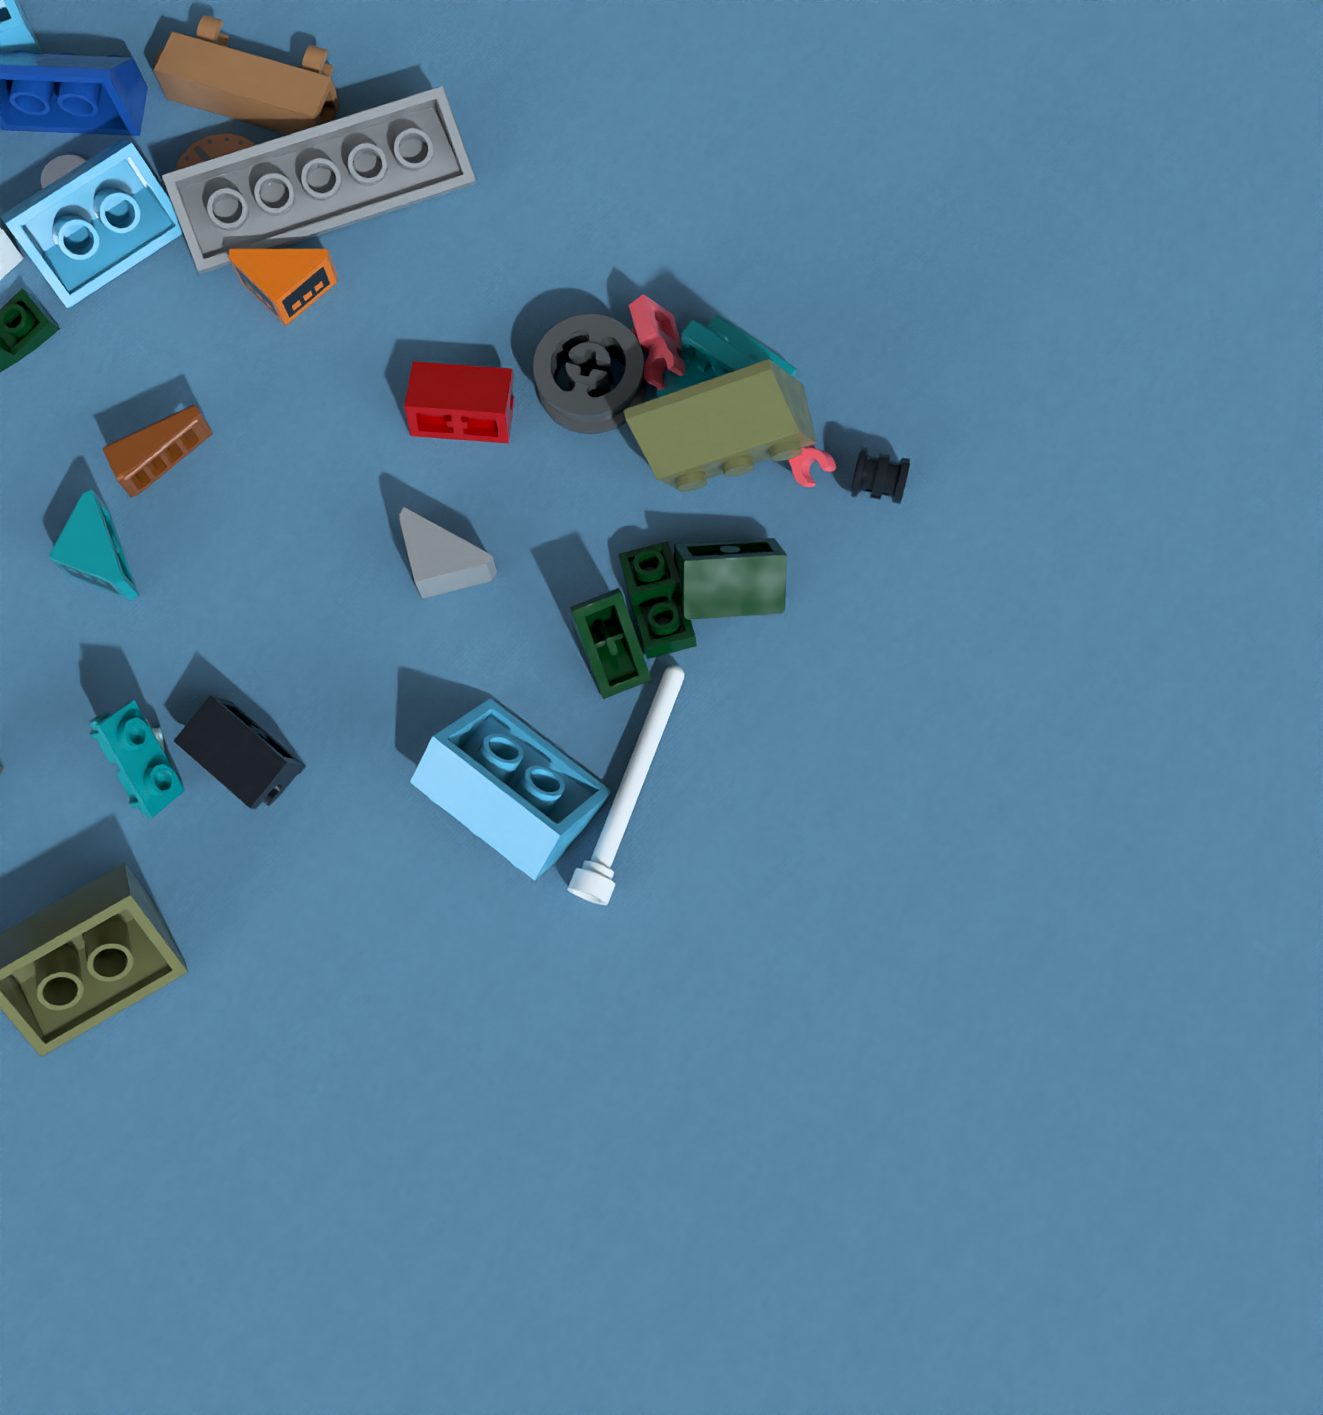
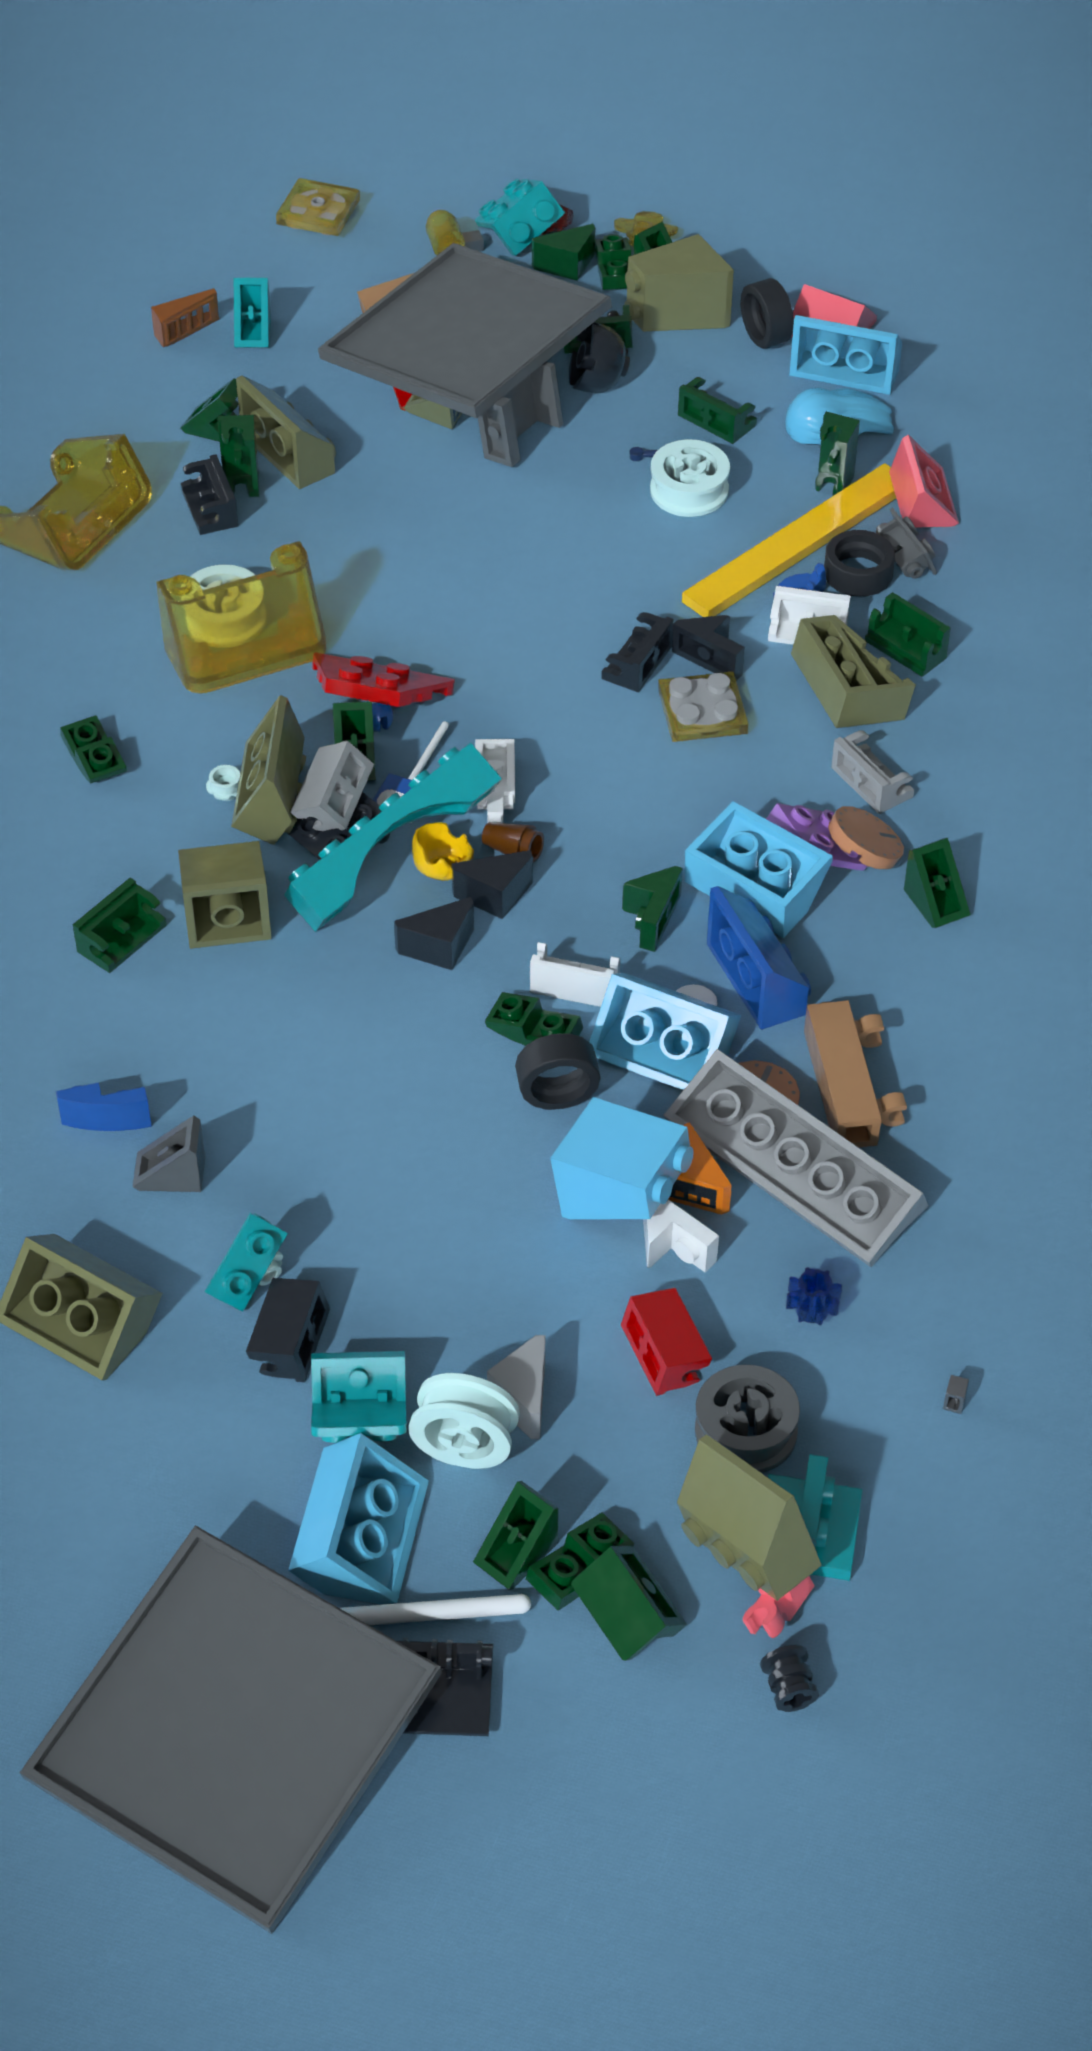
camera: 60 degrees right, 25 degrees down
(85, 340) = (560, 1091): none -> black tyre
(92, 549) = (401, 1159): teal slope -> none
(154, 450) = (500, 1159): dark orange slope -> none
(250, 332) = (618, 1163): none -> medium azure slope
(330, 332) = (677, 1230): none -> white slope
(372, 721) = (358, 1395): none -> teal bracket
(461, 629) = (464, 1420): none -> light aqua wheel
(488, 246) = (813, 1296): none -> clear blue gear
(658, 184) = (955, 1394): none -> flat silver piece
(658, 336) = (815, 1438): coral plate -> none
(675, 1013) = (232, 1727): none -> dark grey tile
(727, 791) = (462, 1693): none -> black hinge

